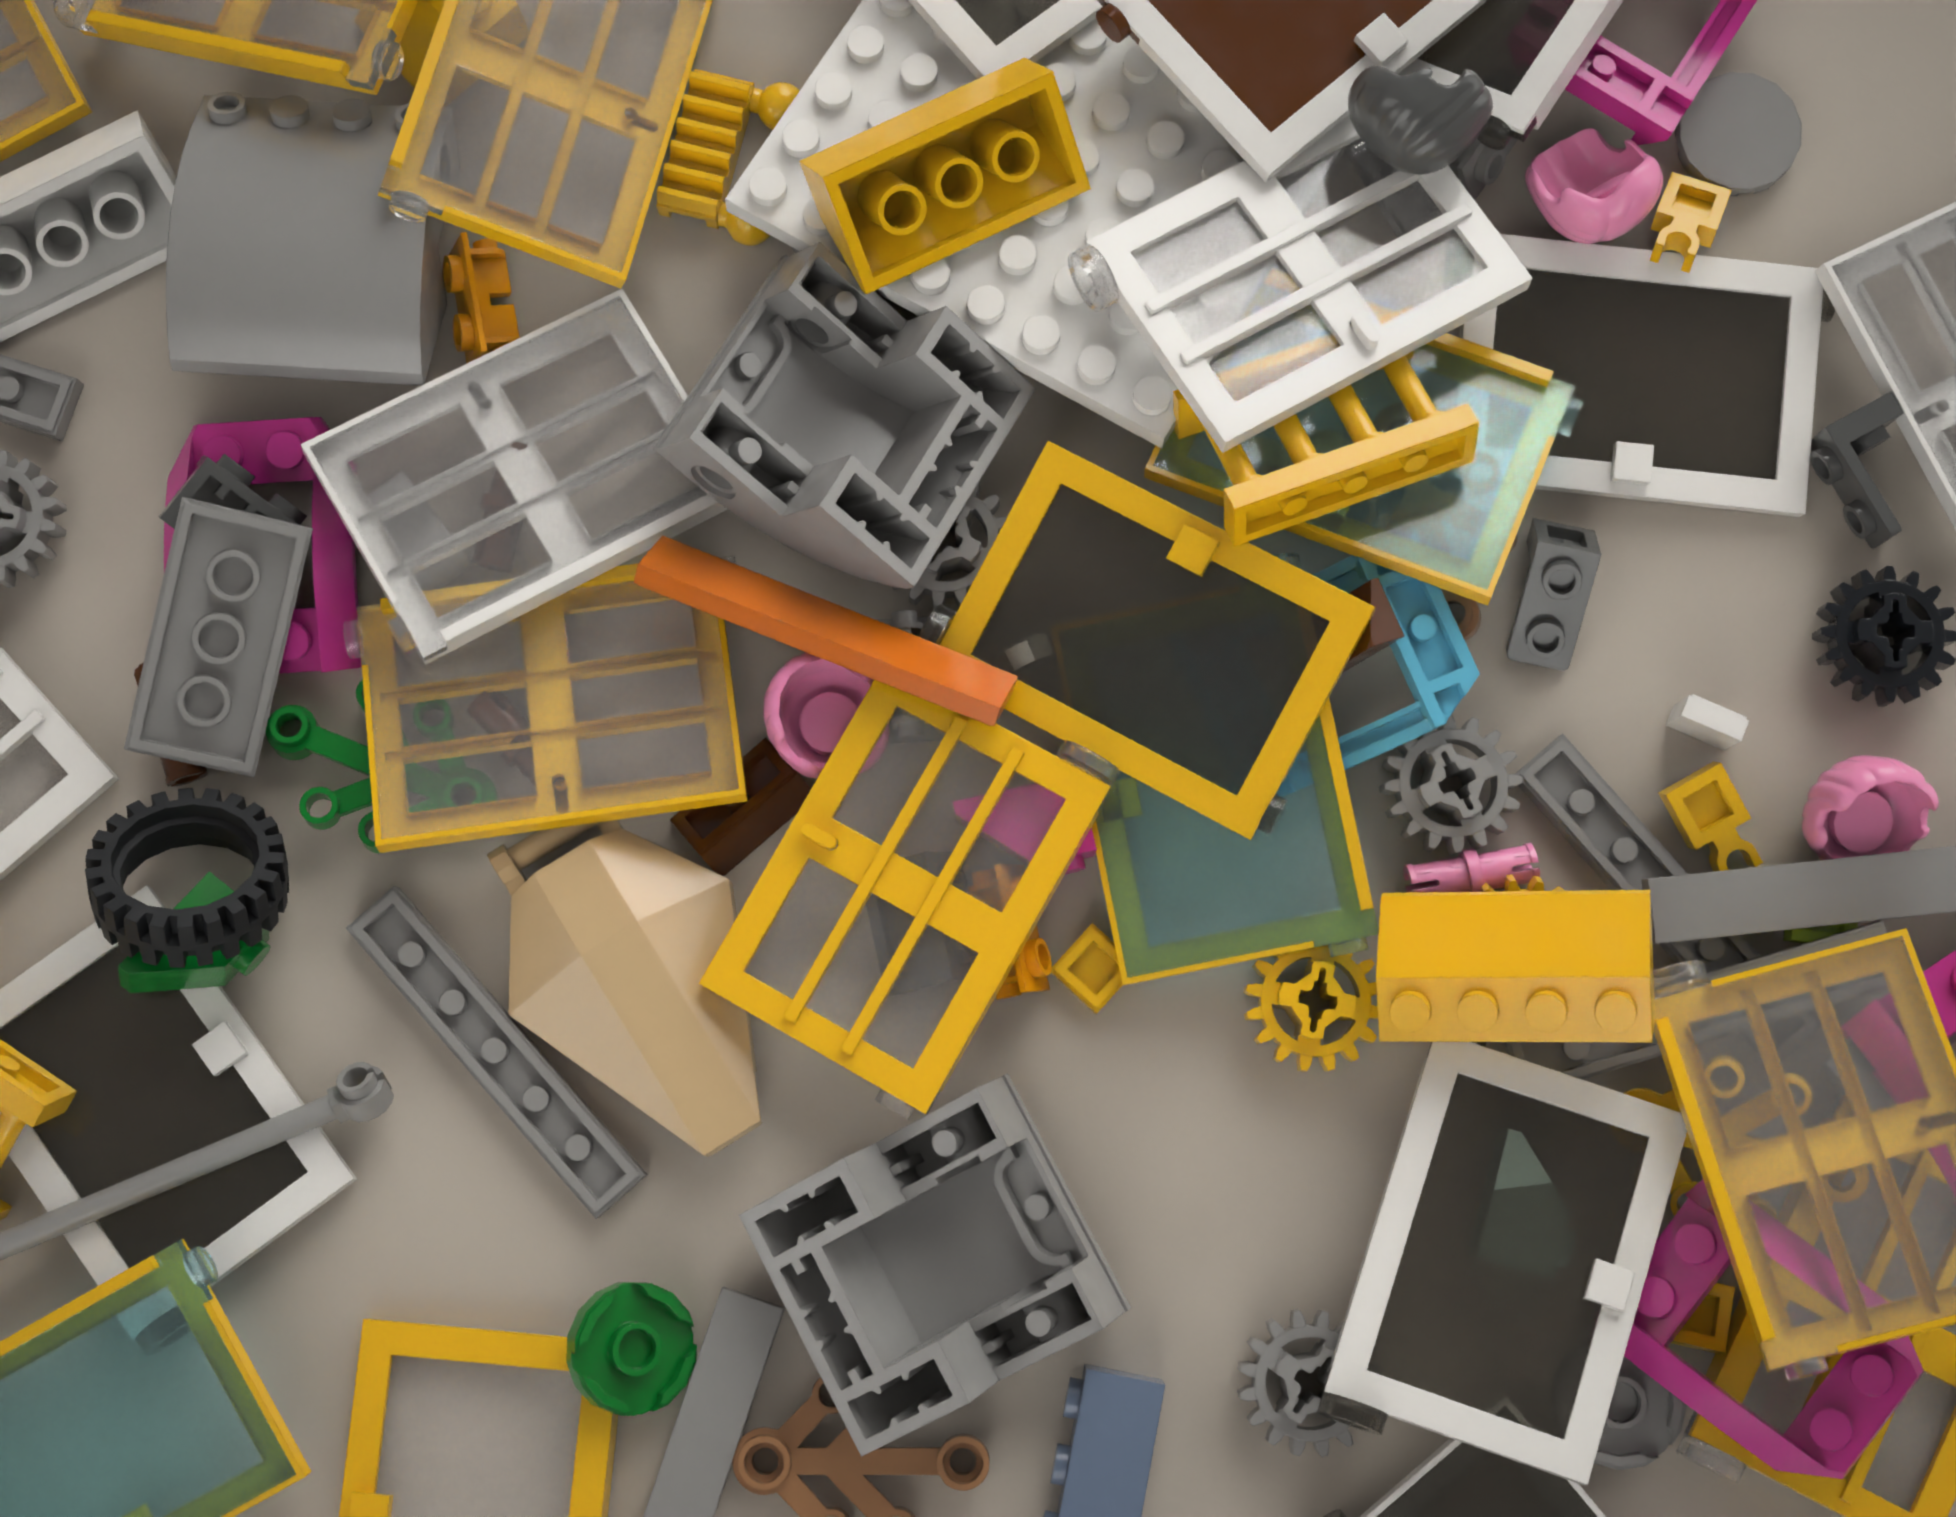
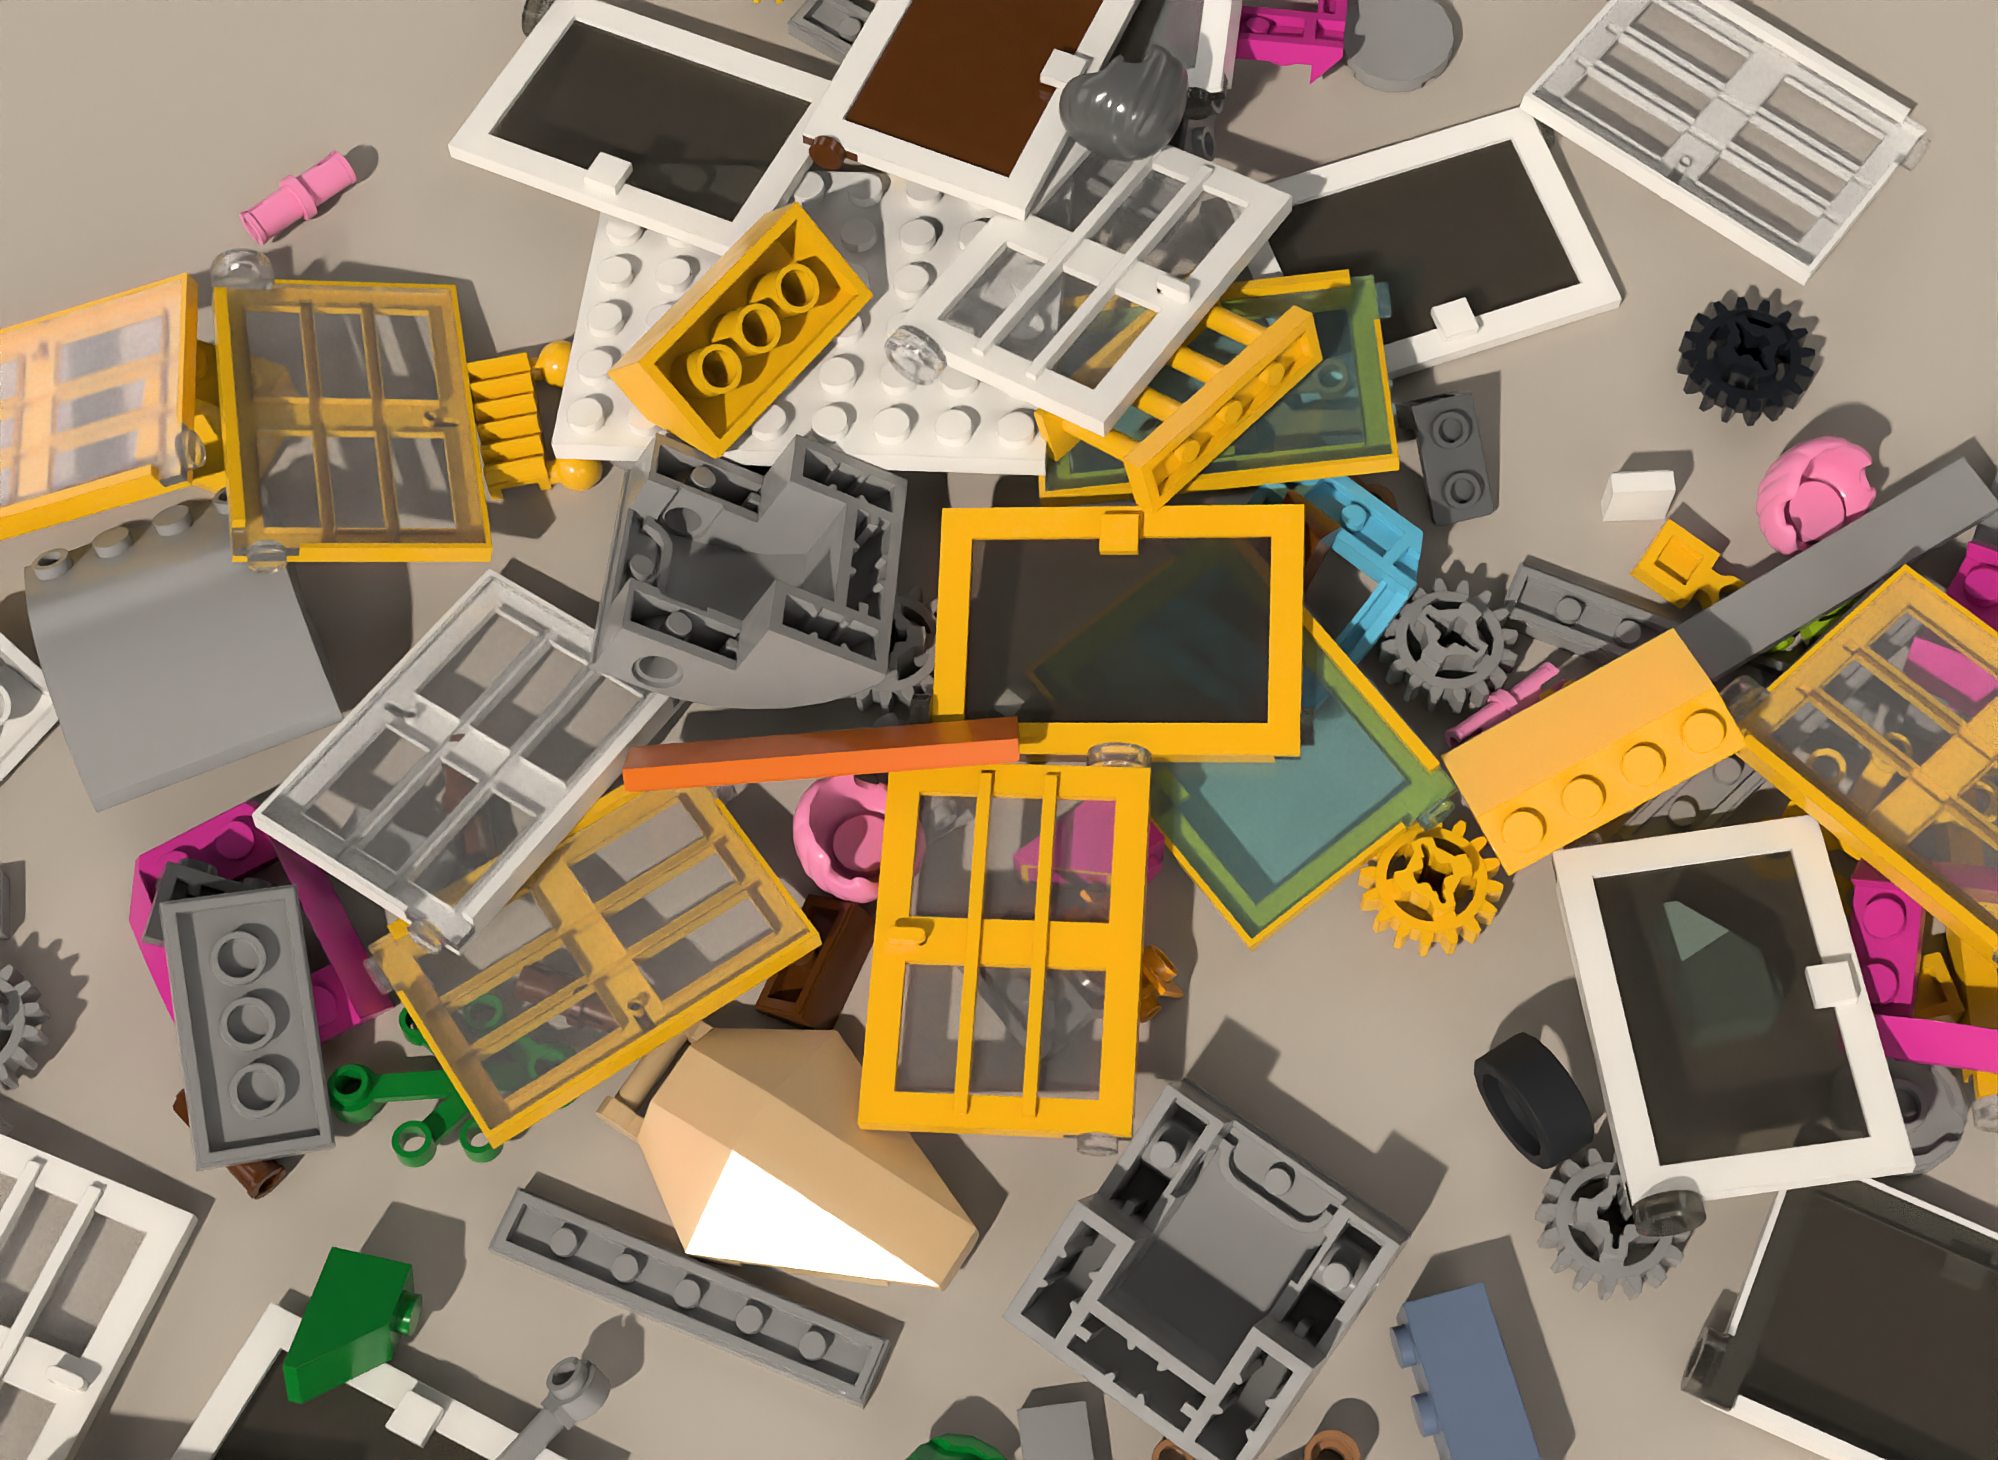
camera: 25 degrees left, 15 degrees down
(193, 929) = (327, 1300): black tyre -> none
(475, 278) = (346, 620): light orange hinge -> none
(1090, 969) = (1213, 956): yellow tile -> none
(1296, 1247) = (1534, 1100): none -> black tyre
(1593, 188) = (1304, 125): bright pink piece -> none
(1688, 217) = (1392, 113): yellow plate -> none
(1837, 463) = (1627, 244): dark grey bracket -> none

